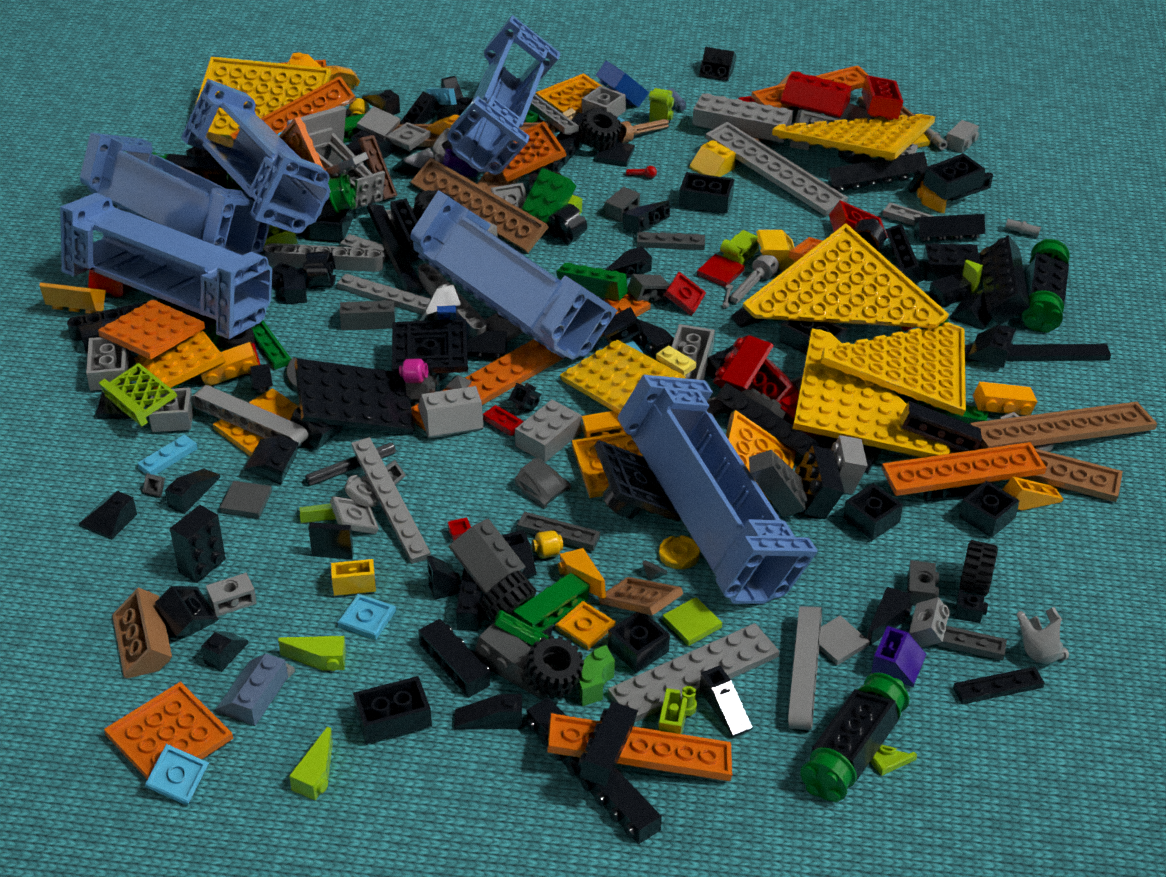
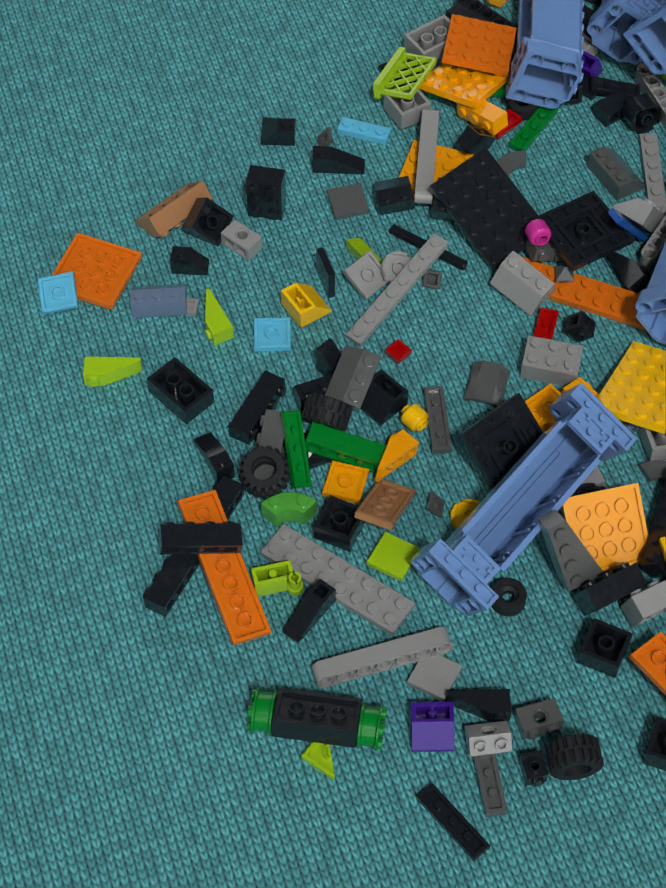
camera: 65 degrees right, 15 degrees up
(1045, 643) = (511, 836): light grey piece -> none

